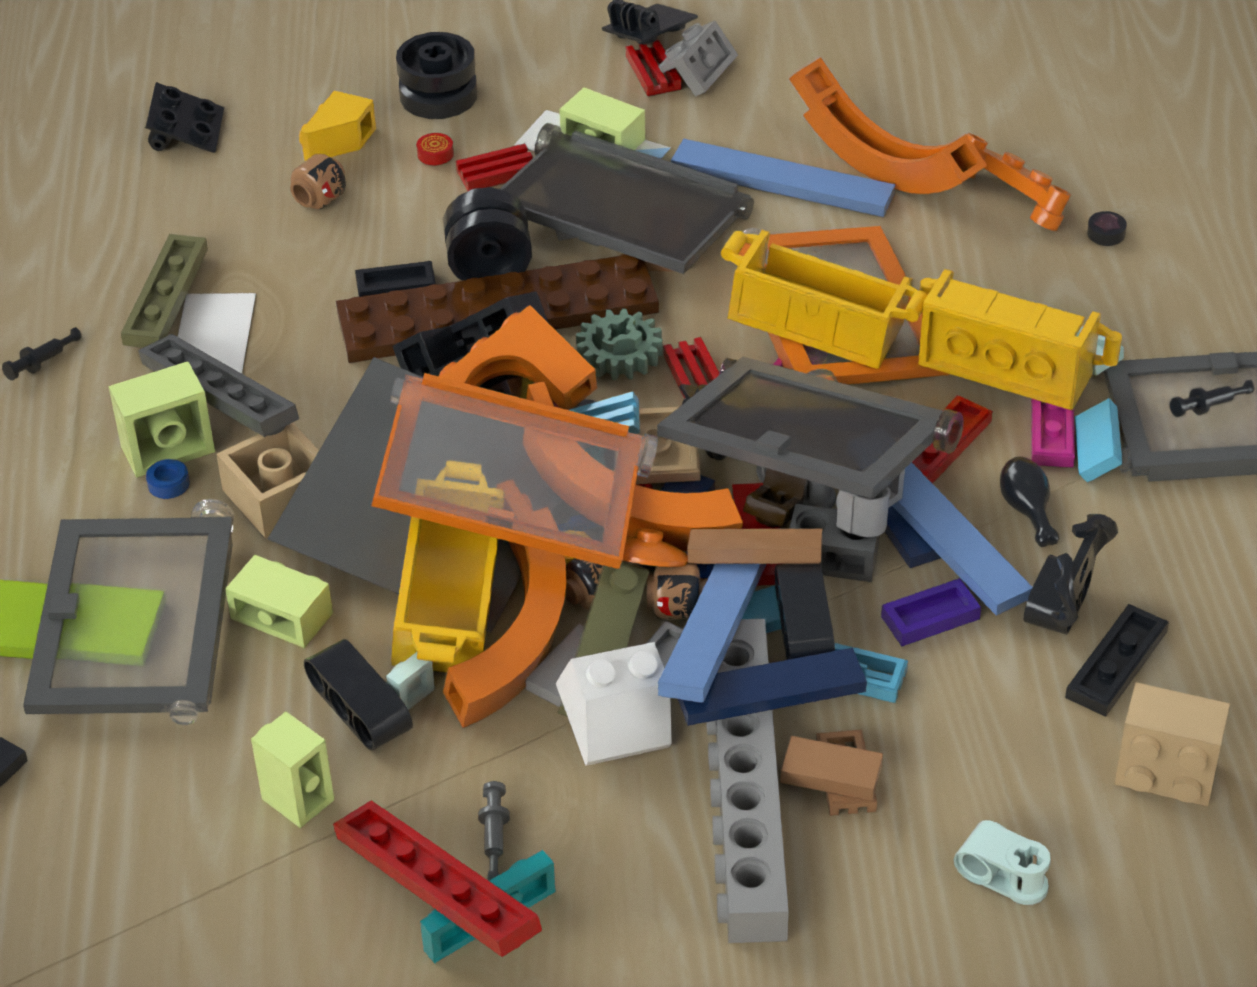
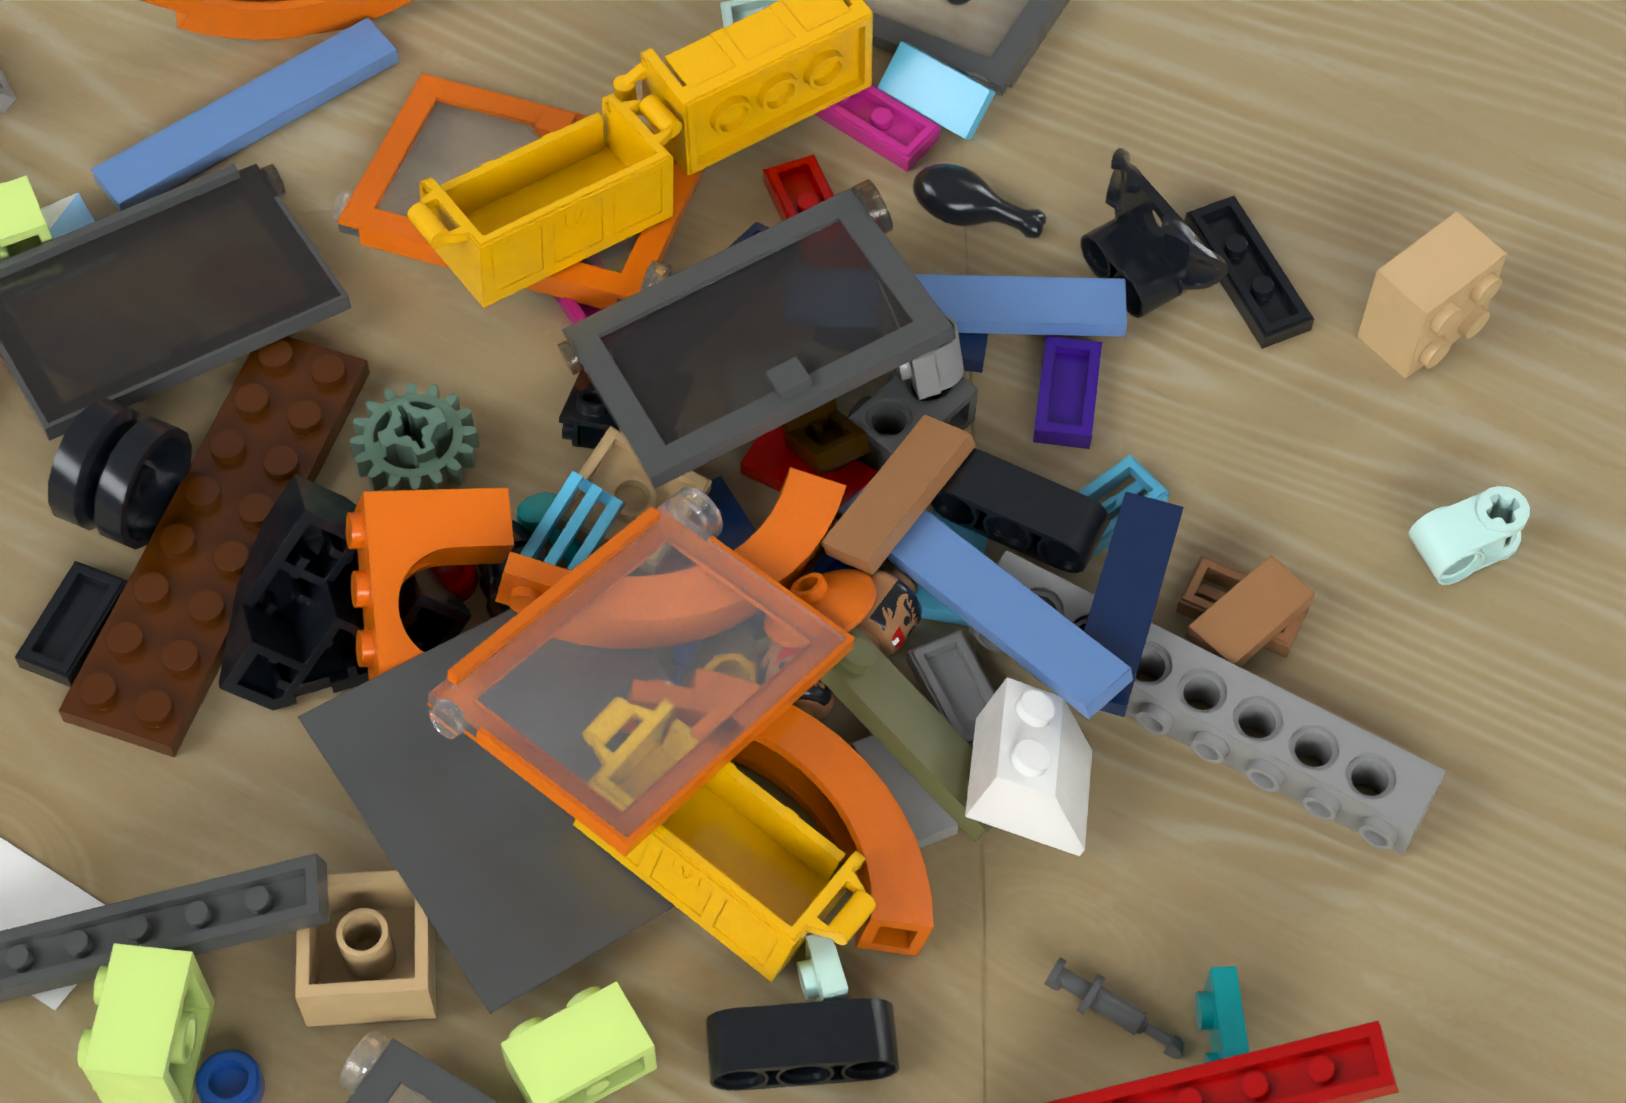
camera: 60 degrees left, 15 degrees up
(688, 352) = (517, 385): red tile -> none

